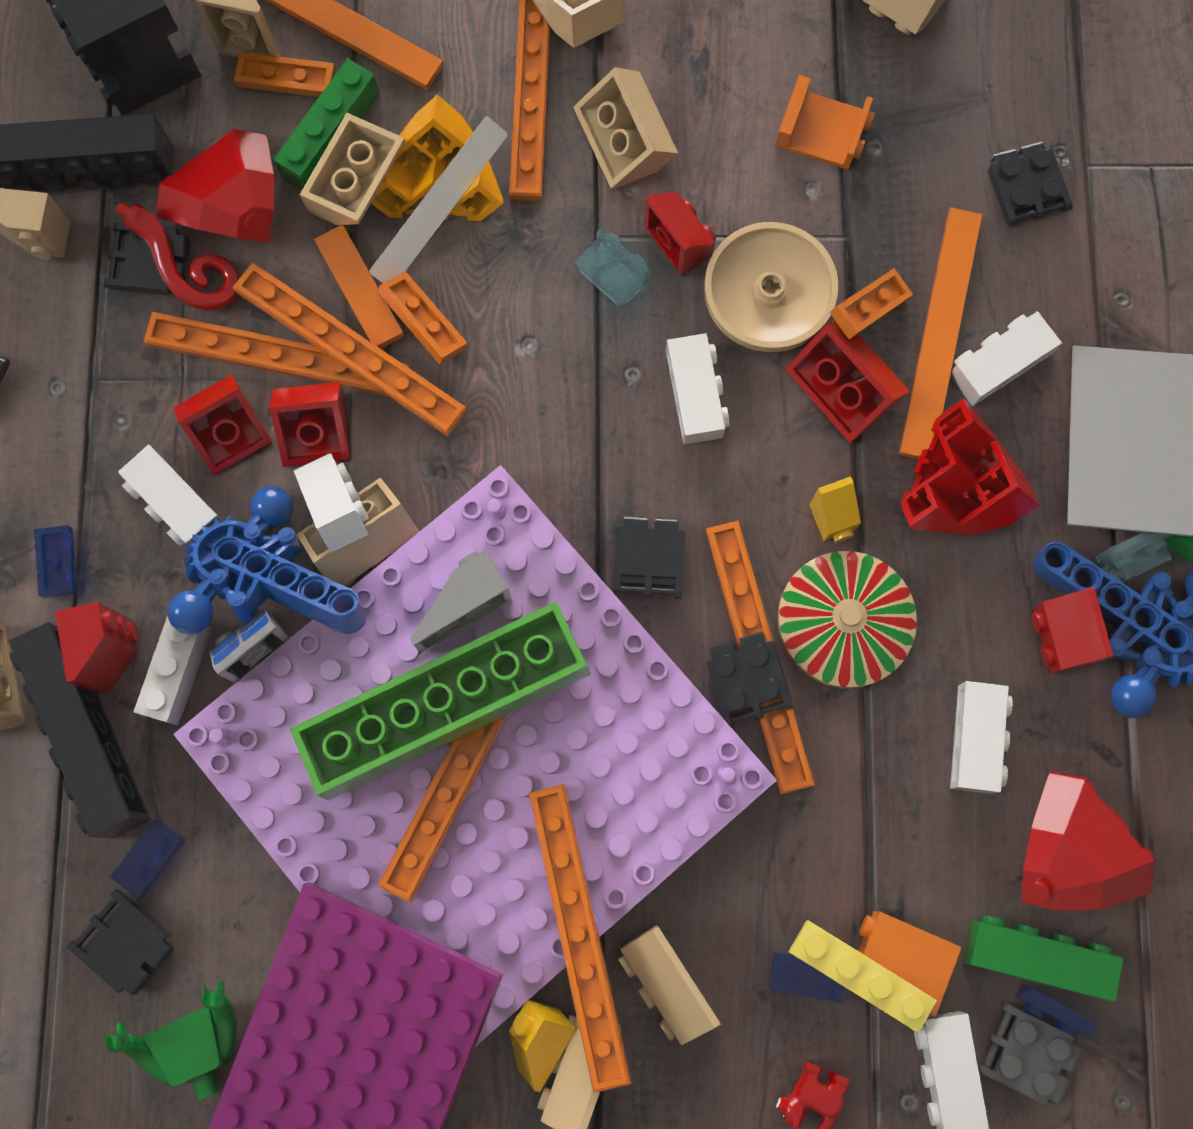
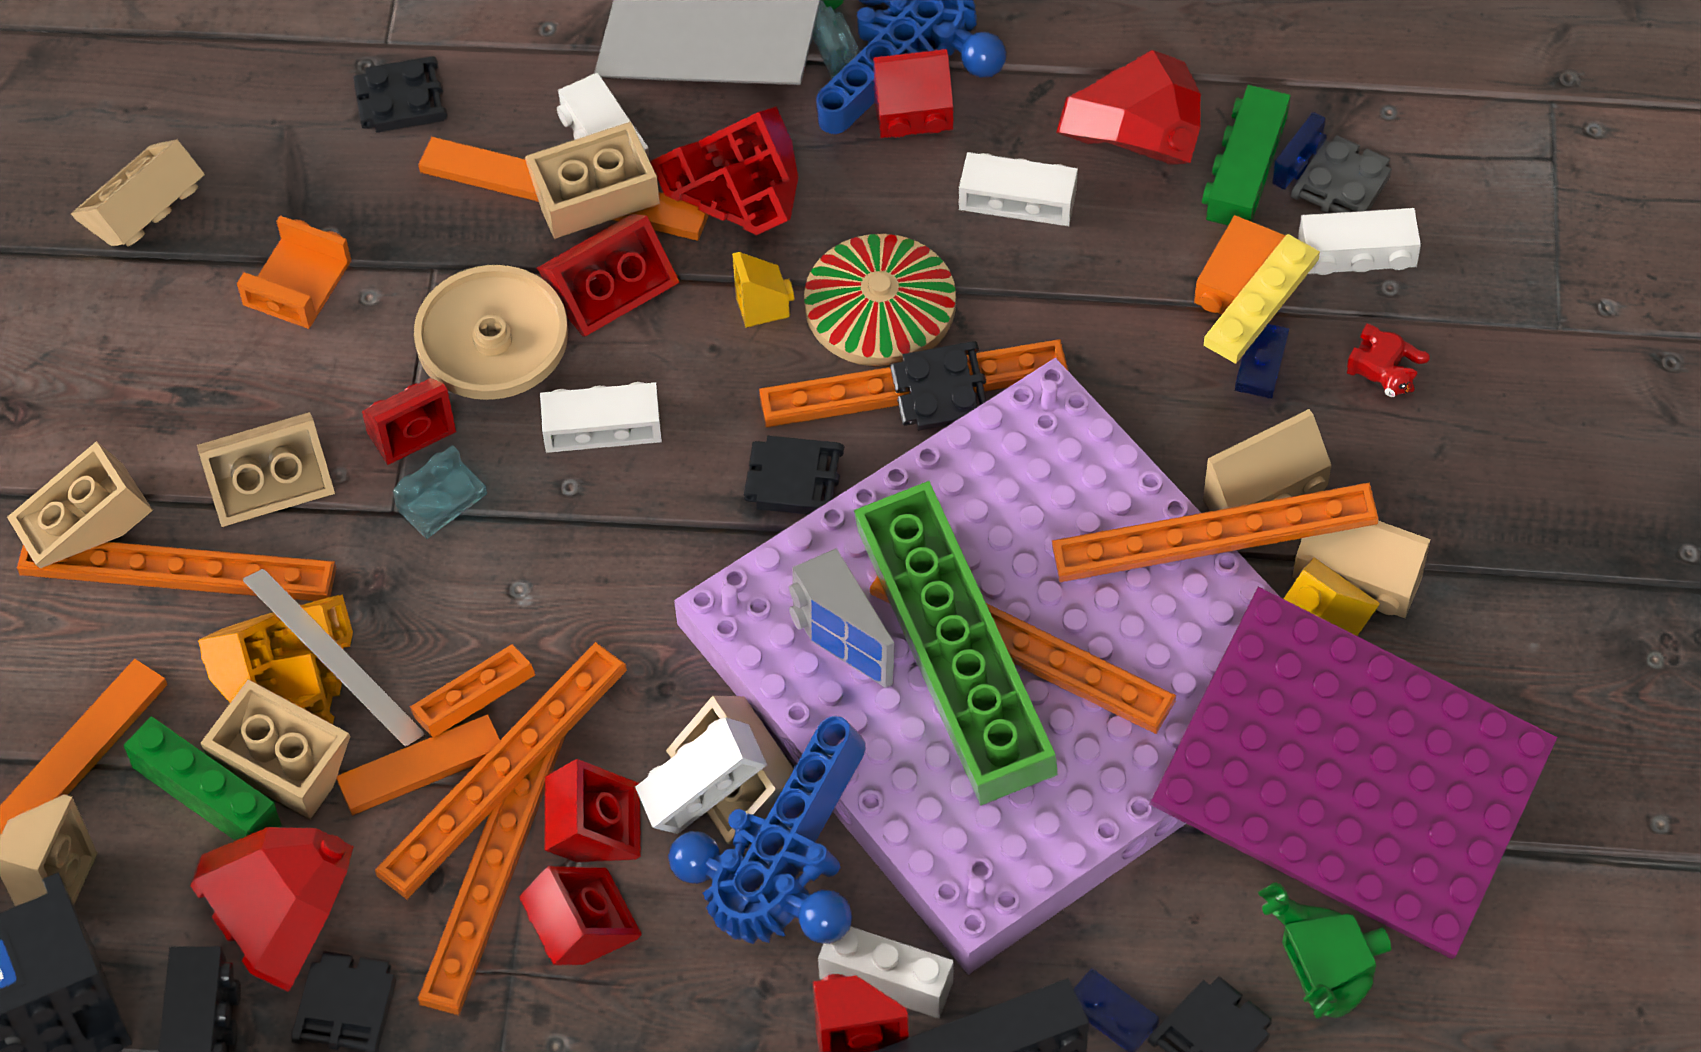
camera: 85 degrees left, 20 degrees down
(152, 231) = (317, 978): red plant -> none
(167, 496) = (669, 974): white brick -> none
(249, 645) = (872, 867): light grey slope -> none
(283, 74) = (118, 837): orange plate -> none
(871, 303) = (527, 237): orange plate -> none
(935, 349) = (593, 179): none -> tan slope

